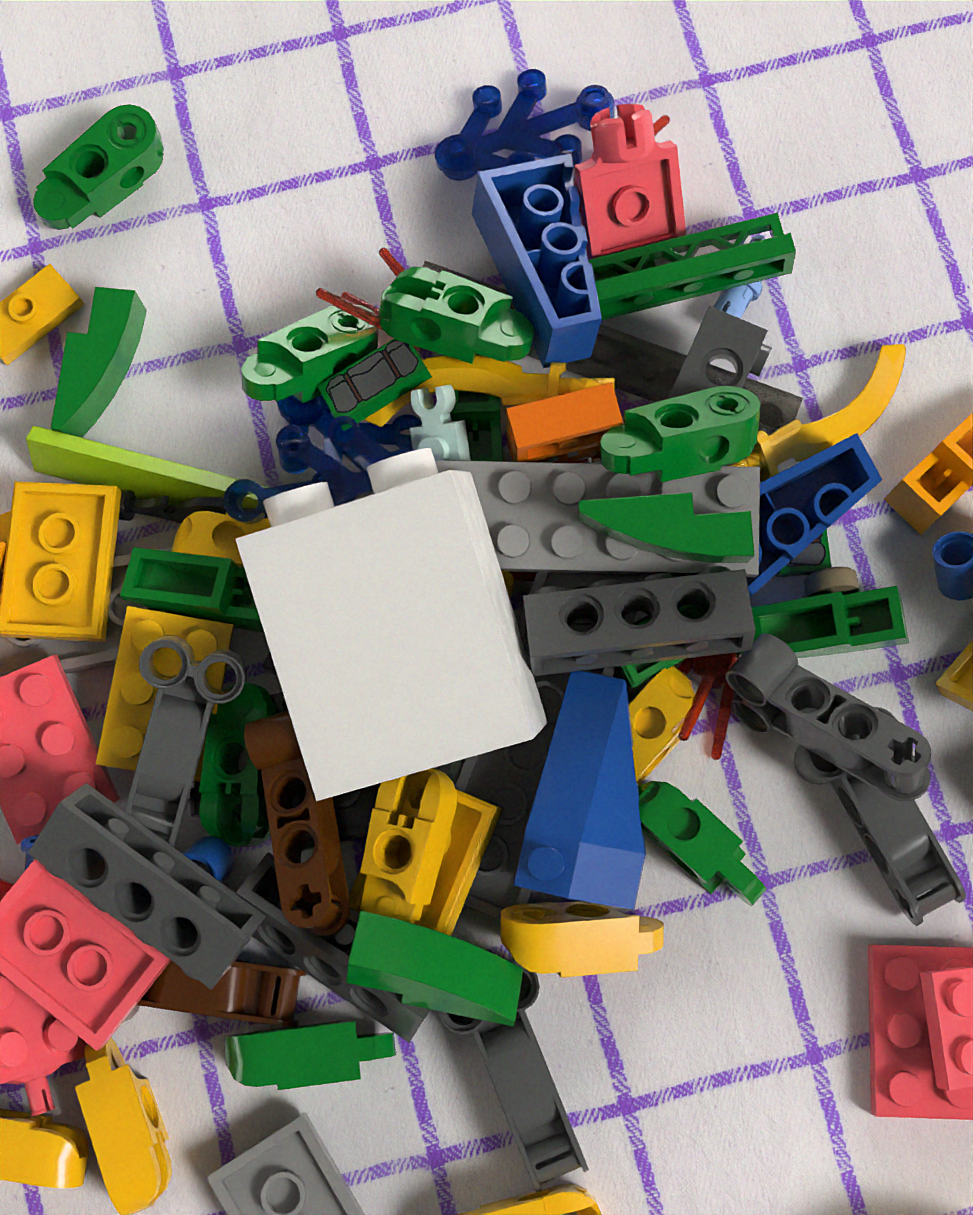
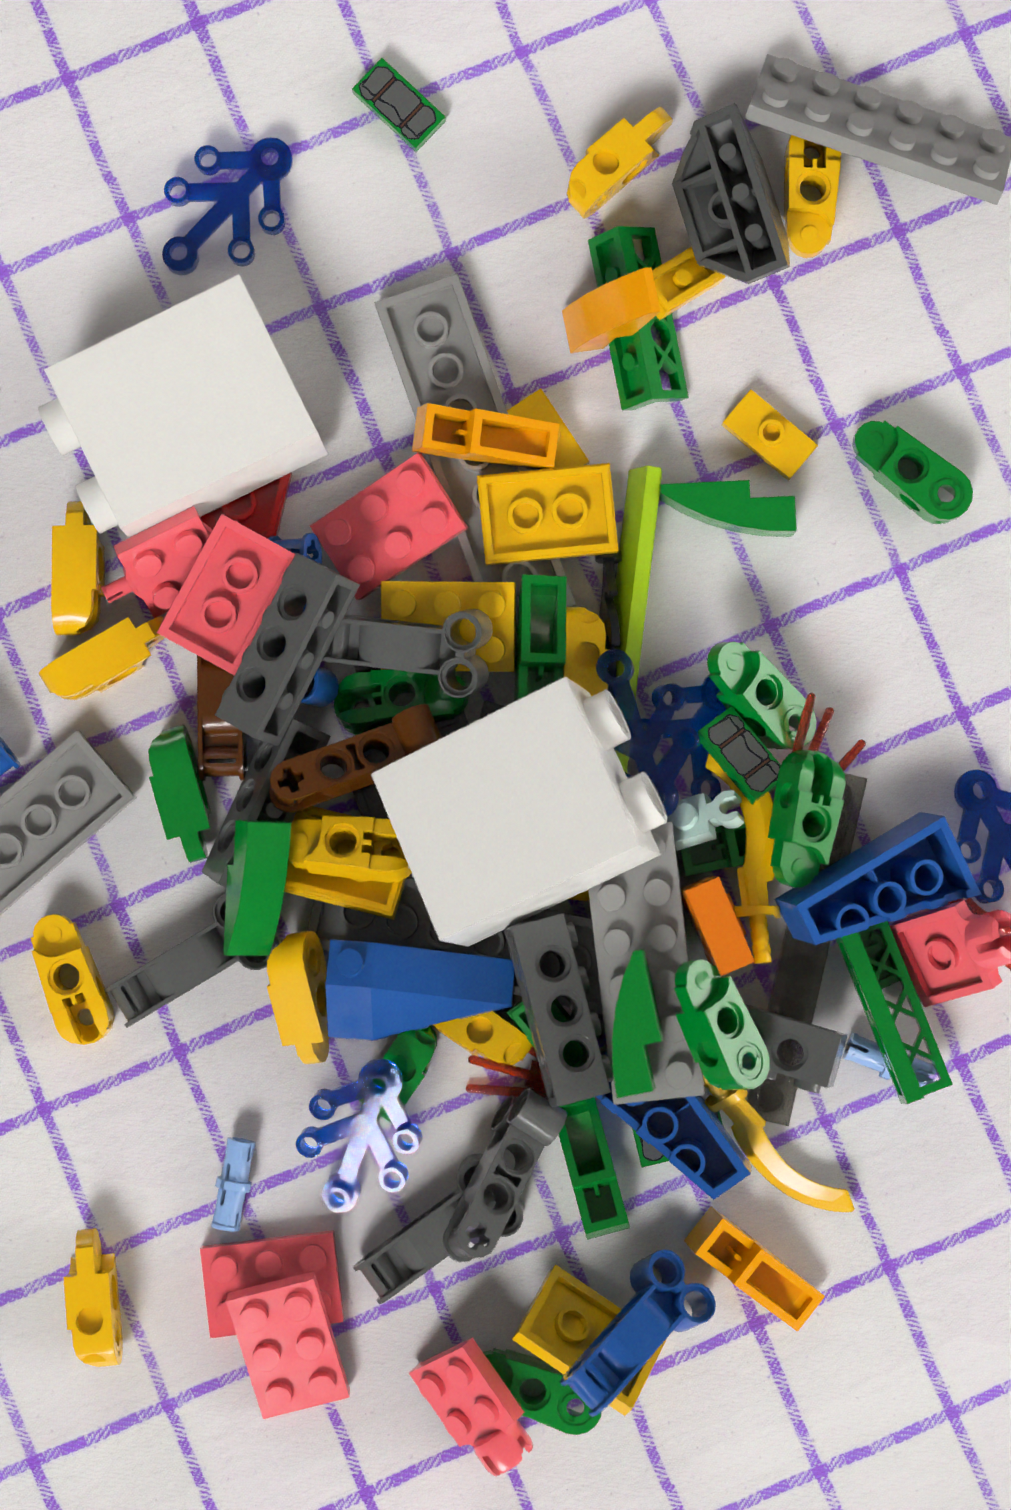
camera: 75 degrees right, 10 degrees up
(752, 884) = (364, 1130): none -> clear blue plant
(800, 1061) = (233, 1184): none -> light blue pin
(831, 581) = (626, 1168): dark tan tile -> none

